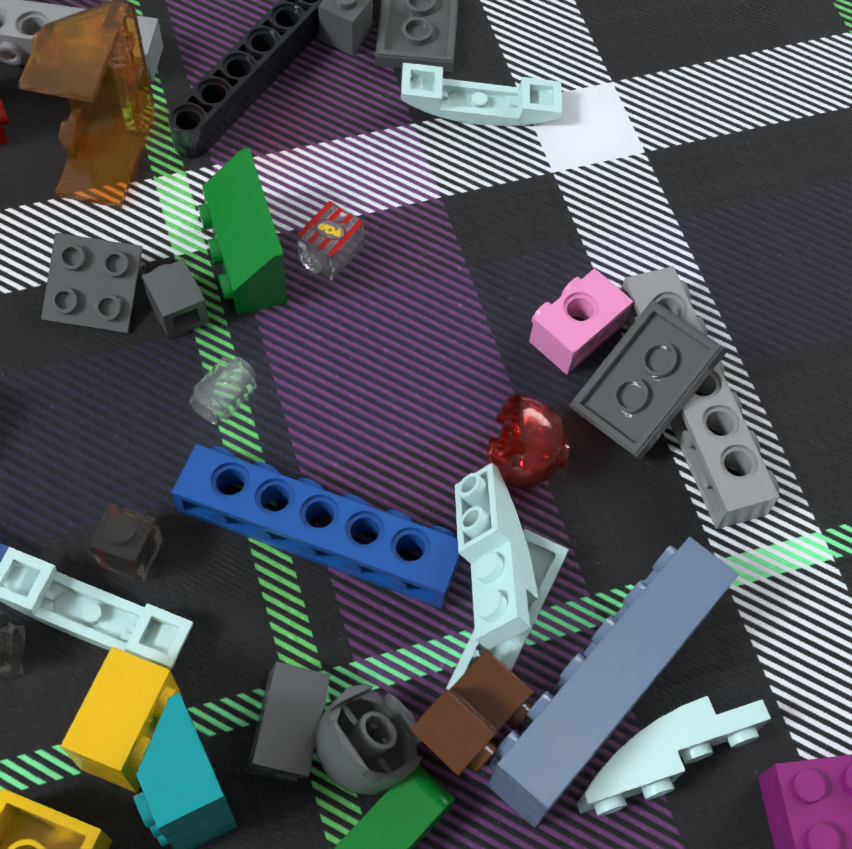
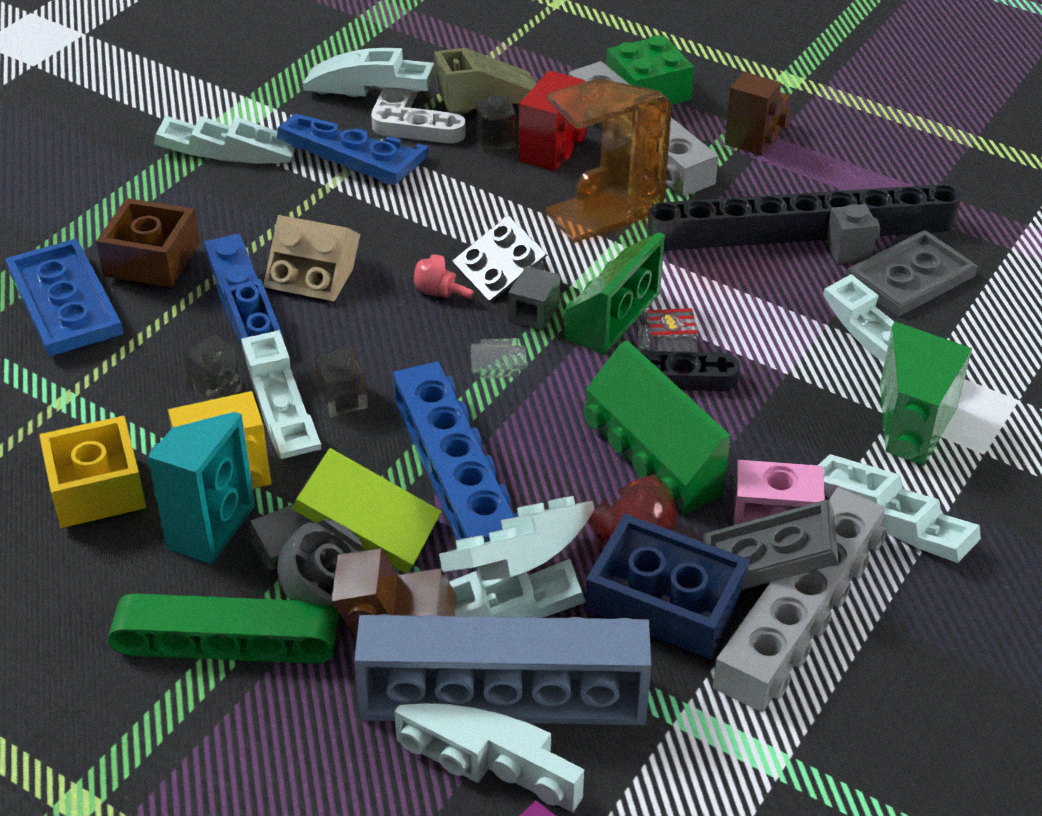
camera: 55 degrees right, 20 degrees down
(60, 355) = (434, 280): none -> coral piece
(324, 648) = (369, 507): none -> lime tile
(368, 283) = (711, 363): none -> black beam
(441, 343) = (658, 428): none -> green slope
(575, 138) = (920, 390): none -> green slope
(621, 481) = (670, 580): none -> dark blue slope
(639, 253) = (907, 514): none -> light aqua slope

